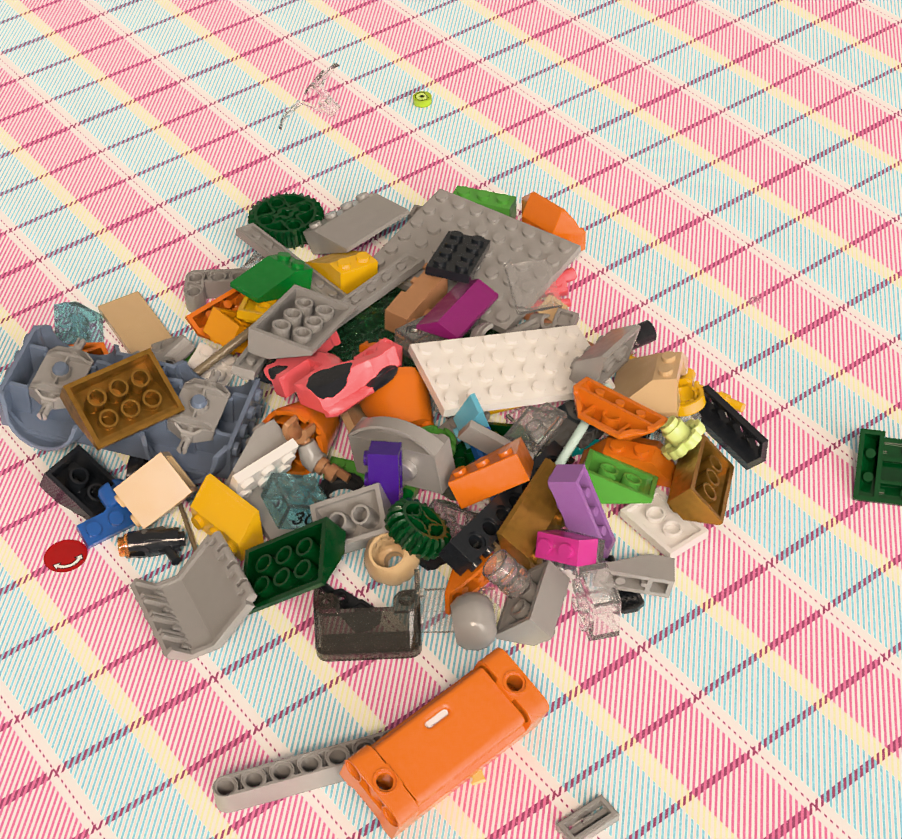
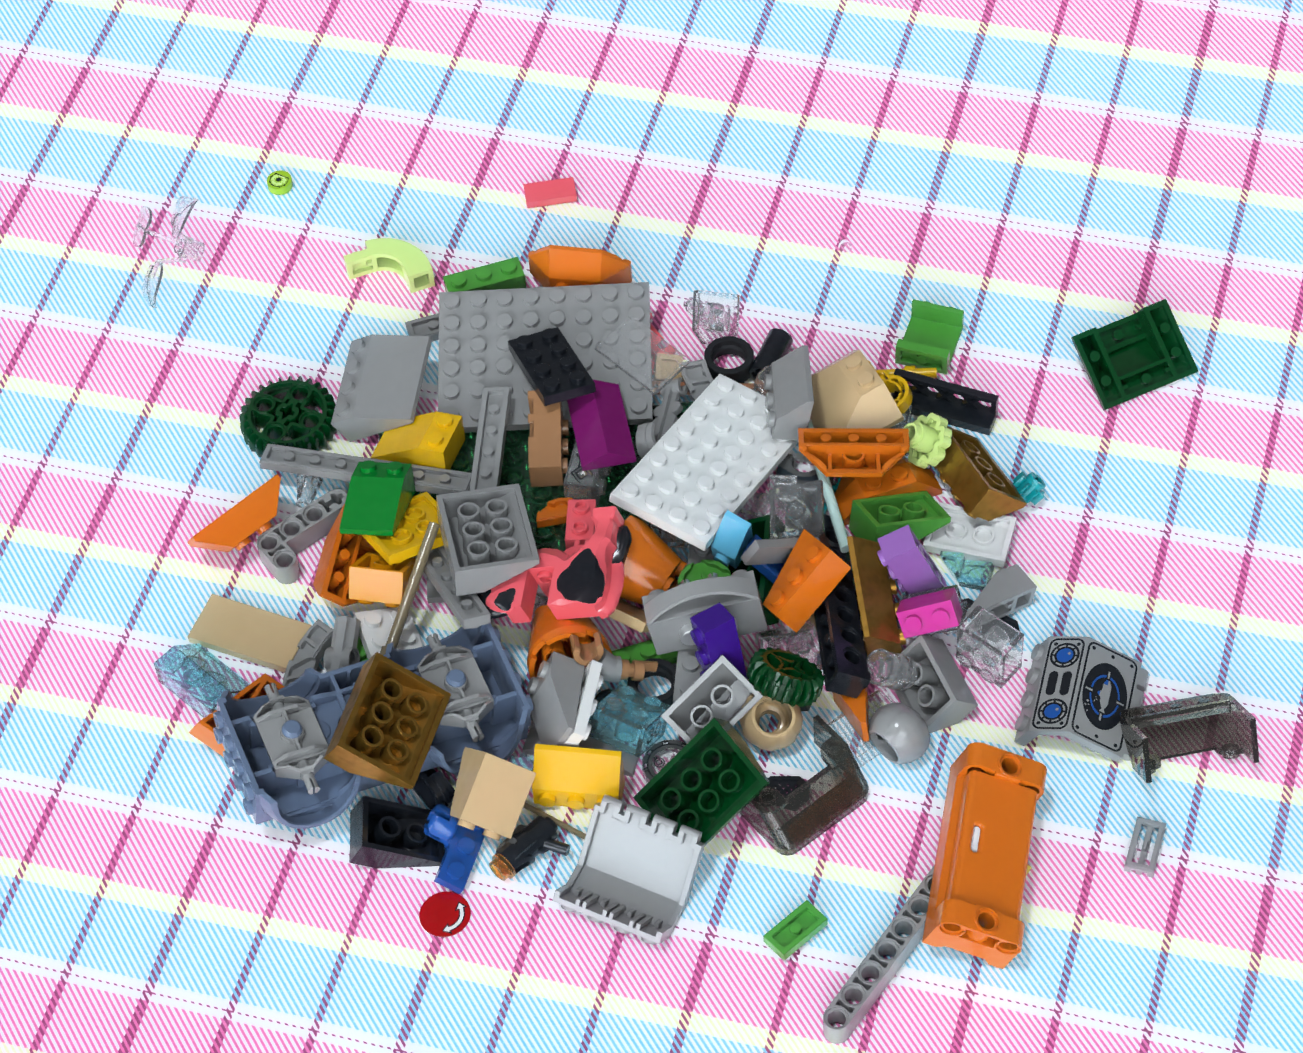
camera: 35 degrees left, 10 degrees up
(190, 254) = (242, 520): none -> orange wedge
(268, 710) = (795, 930): none -> bright green plate
(440, 163) = (392, 256): none -> yellowish green arch
(583, 178) = (550, 192): none -> coral tile
(598, 316) = (734, 346): none -> black tyre
(613, 293) = (713, 314): none -> clear piece
(637, 544) = (968, 572): none -> clear light blue slope
(642, 683) = (1078, 694): none -> light grey hinge
(691, 749) = (1188, 728): none -> clear smoke windscreen
(737, 515) = (1030, 487): none -> teal gear
(762, 385) = (930, 336): none -> bright green panel

